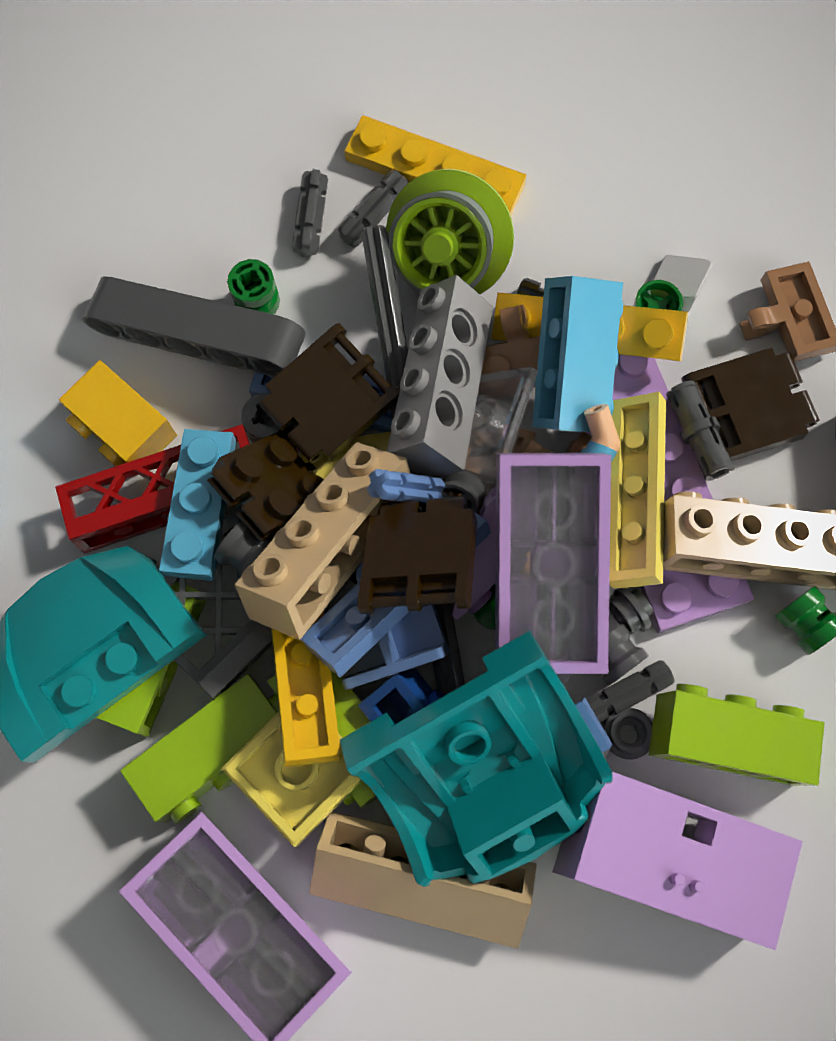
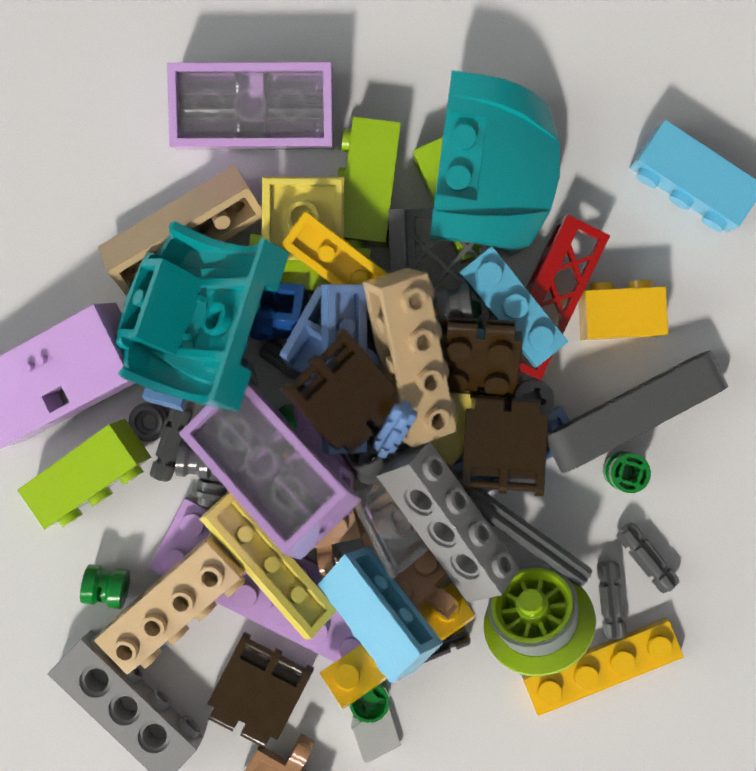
camera: 135 degrees right, 15 degrees up
(602, 430) = (313, 574): light nougat arm -> none
(700, 430) = (270, 642): dark grey pin -> none

